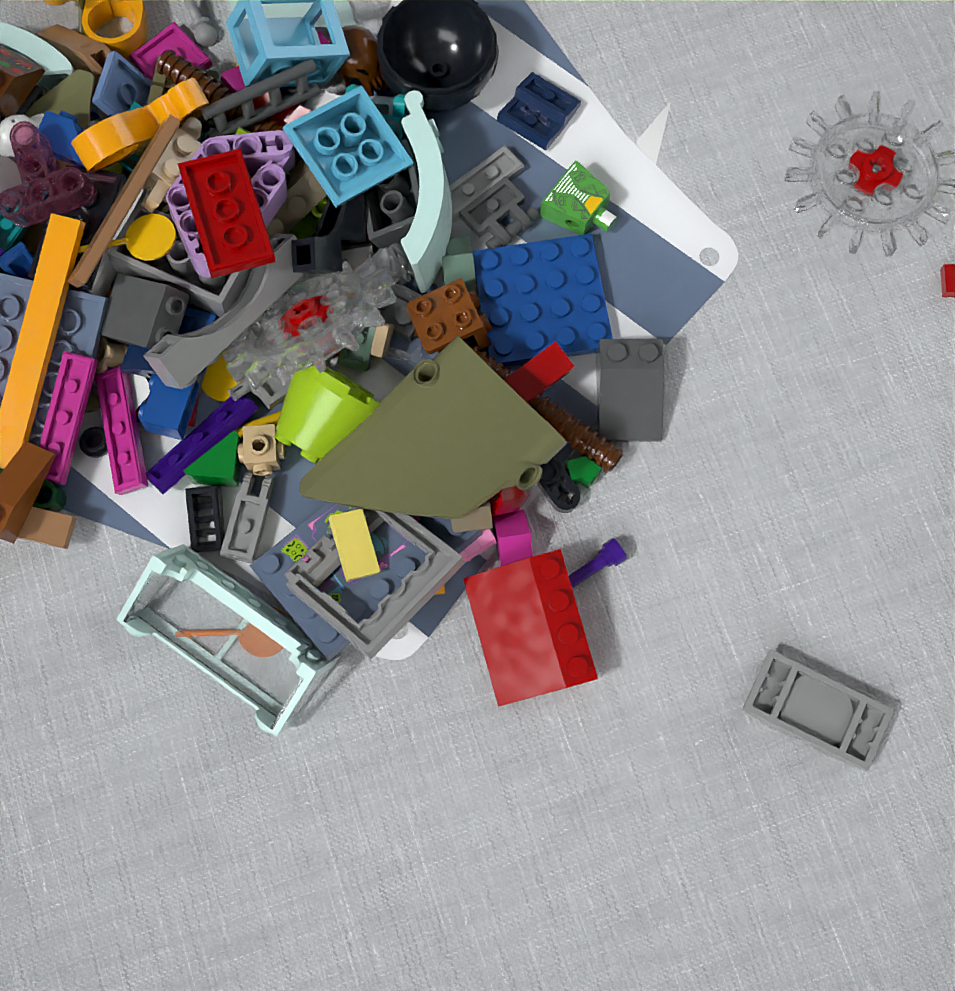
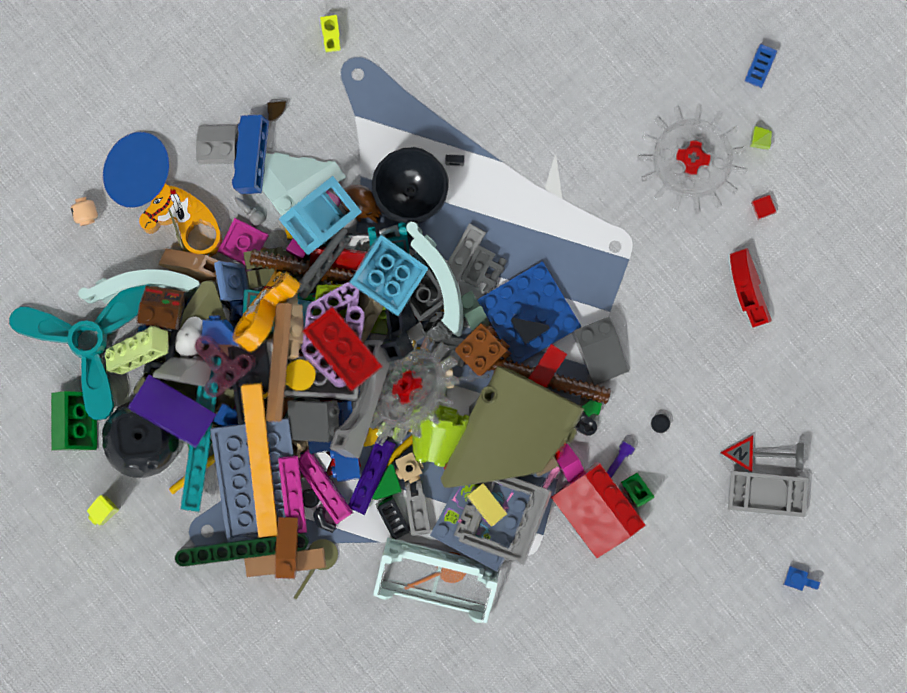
camera: 25 degrees left, 10 degrees up
(83, 541) = (331, 557): none -> olive piece
(95, 481) = (321, 522): none -> black arm
(519, 53) = (454, 160): none -> black tile
(531, 315) = (528, 330): none -> black slope
(538, 111) = (480, 192): dark blue slope -> none
(578, 202) = (528, 244): bright green torso -> none
(606, 624) = (637, 490): none -> green slope
(681, 534) = (660, 423): none -> black plate
(799, 630) = (743, 454): none -> dark grey piece
(820, 872) = (798, 579): none -> blue plate
(895, 384) = (747, 288): none -> red slope

